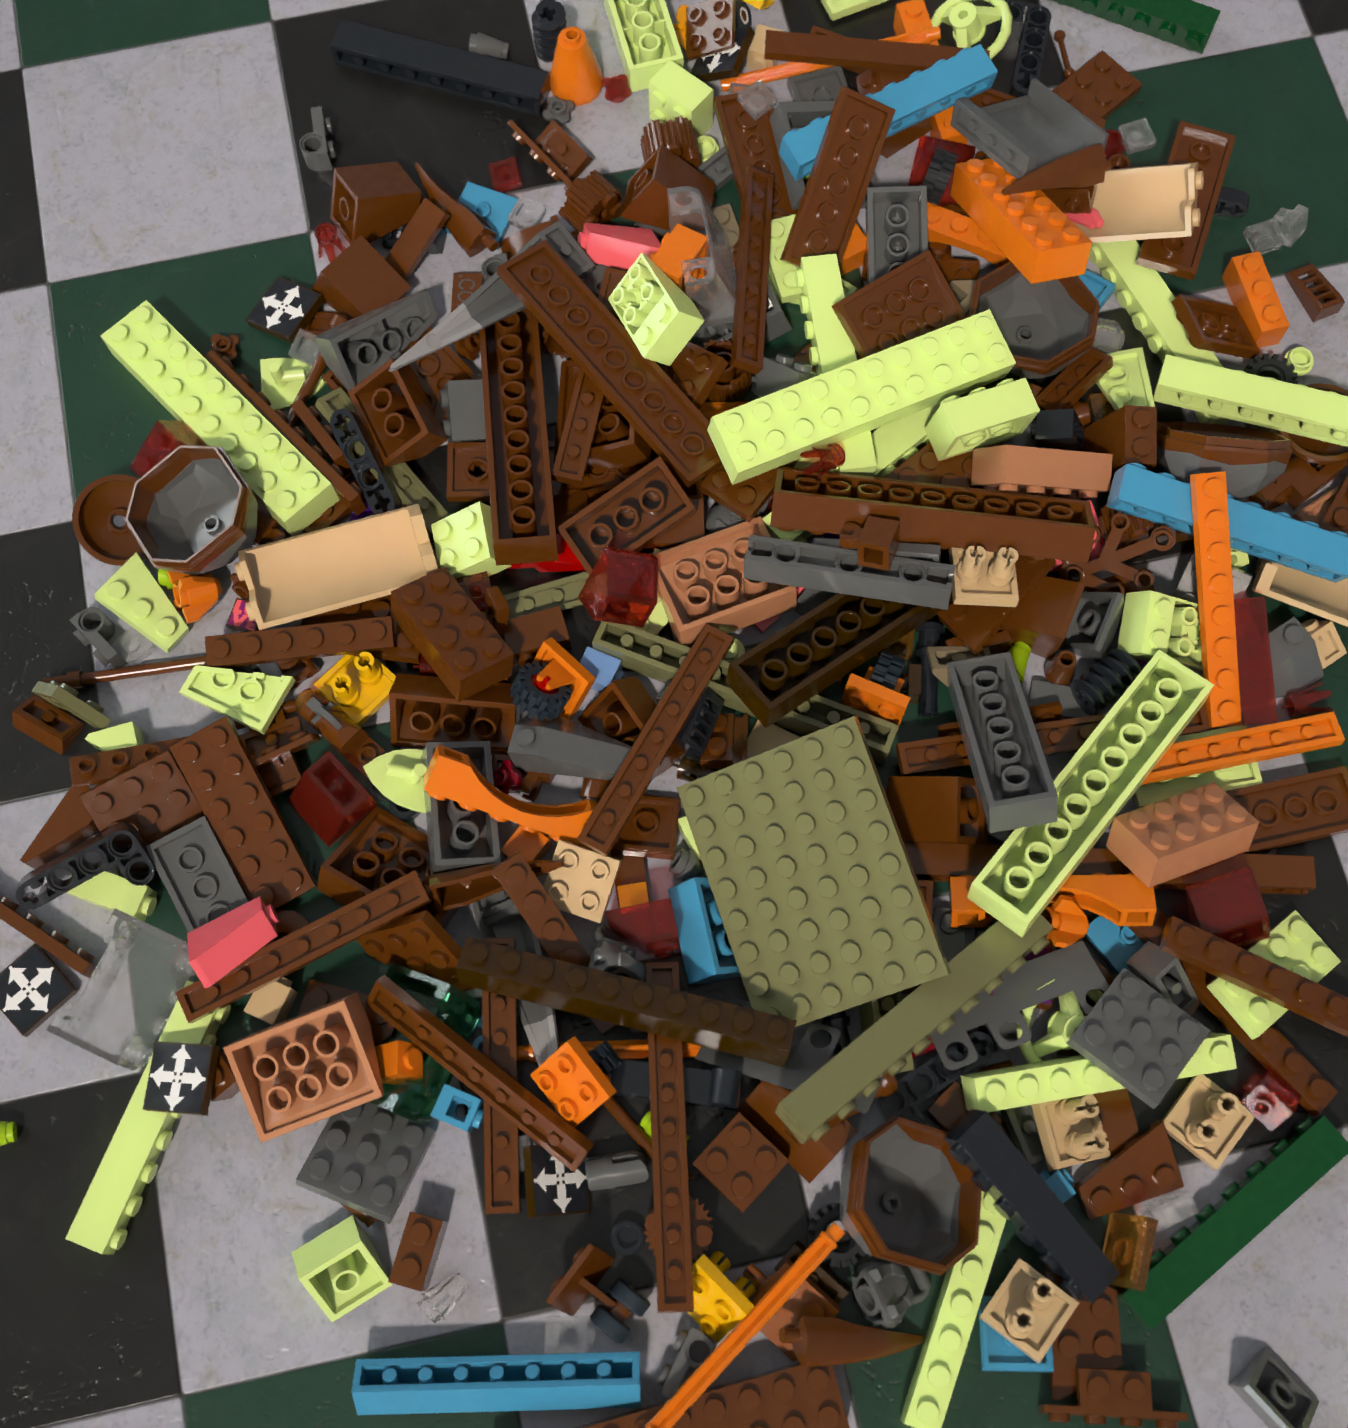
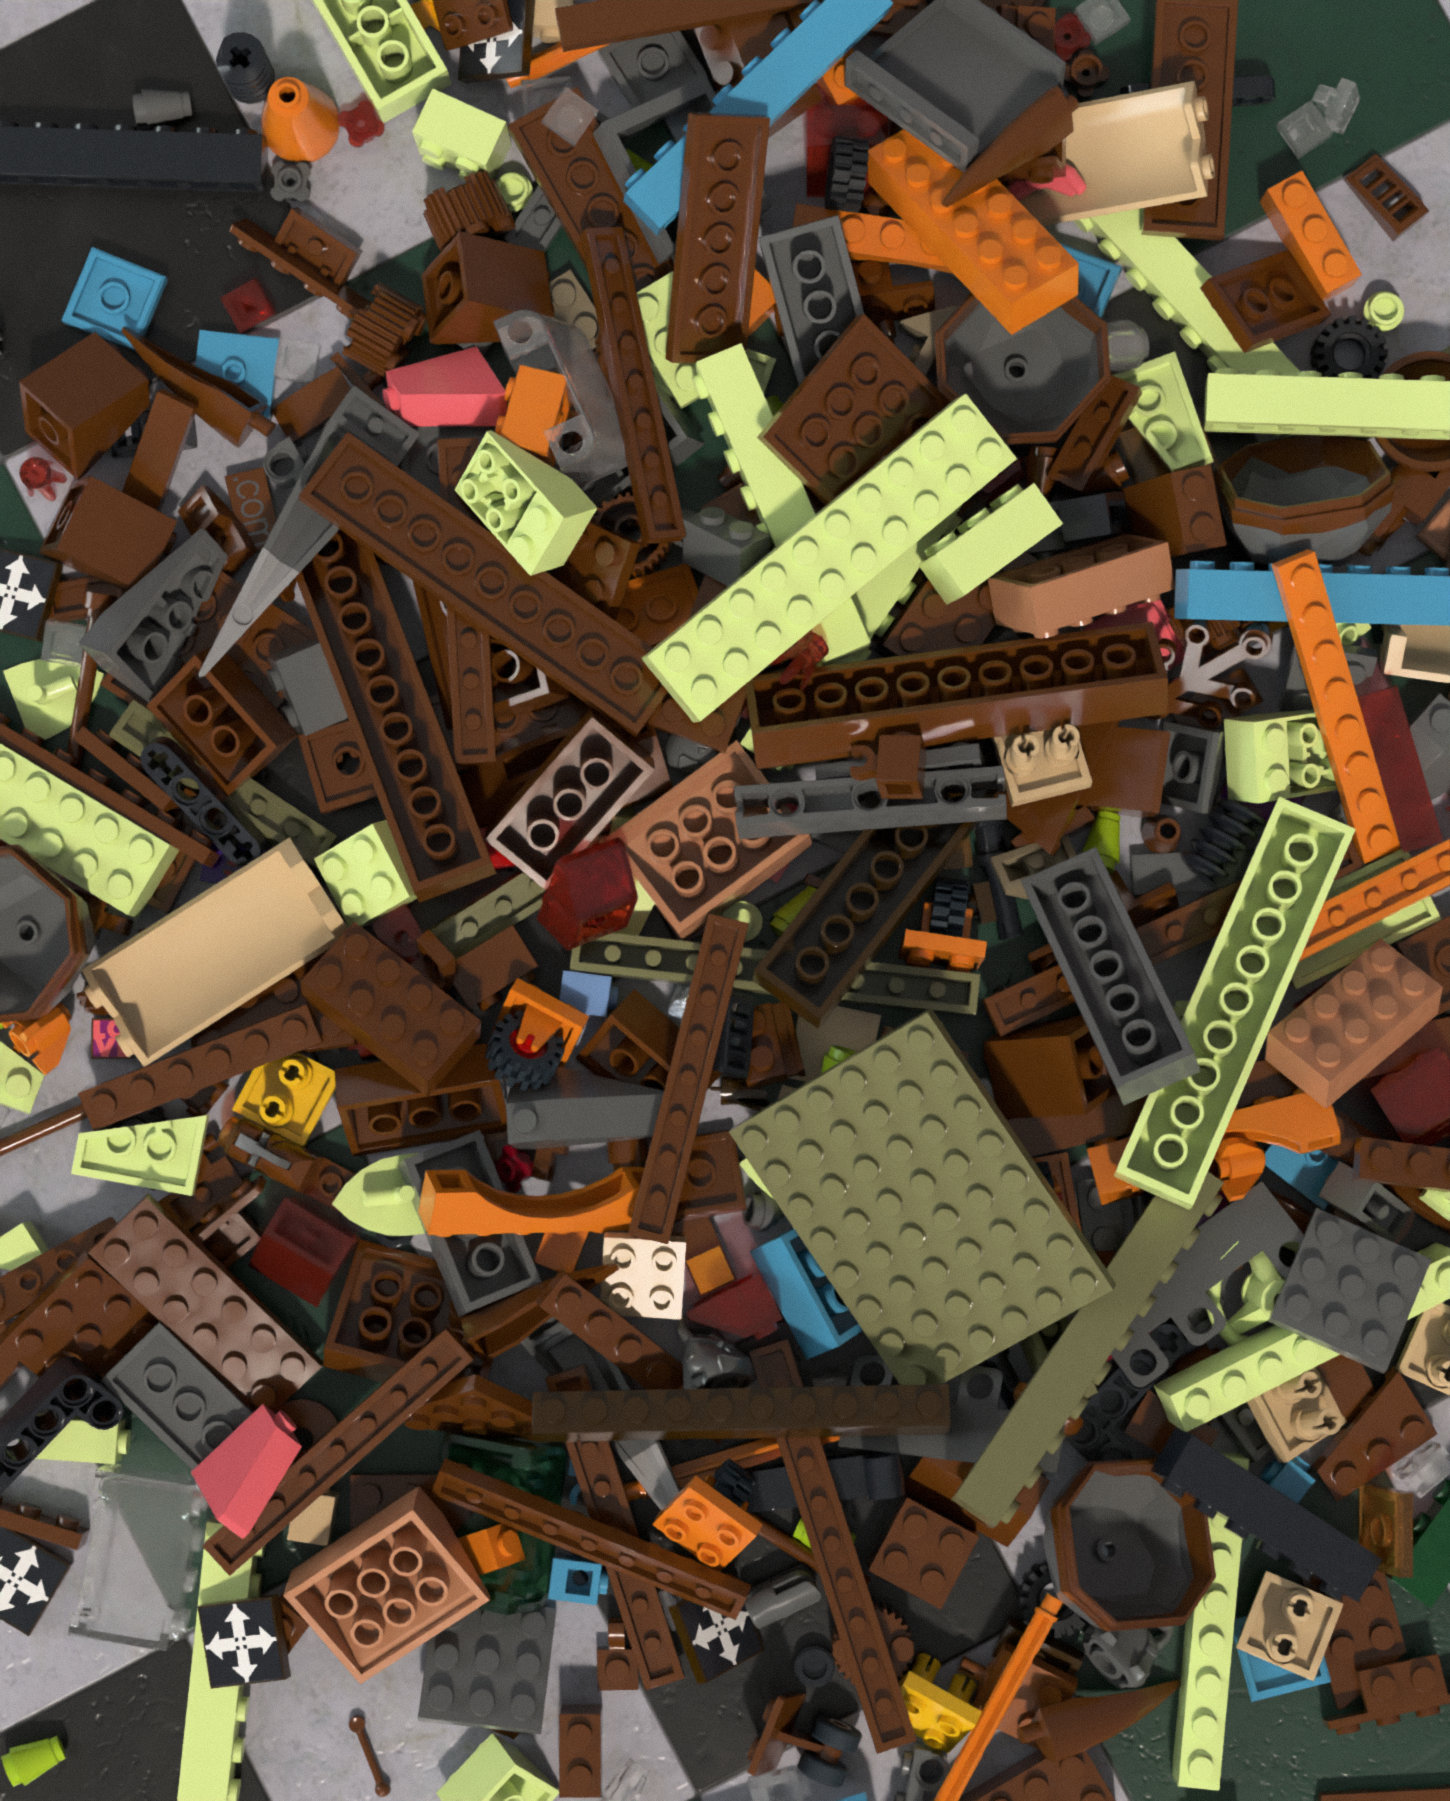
camera: 15 degrees left, 15 degrees up
(250, 1181) = (357, 1725): none -> reddish brown hinge
(419, 144) = (113, 296): none -> dark azure plate
(440, 296) = (210, 513): none -> reddish brown slope
(469, 1188) = (616, 1662): none -> reddish brown plate

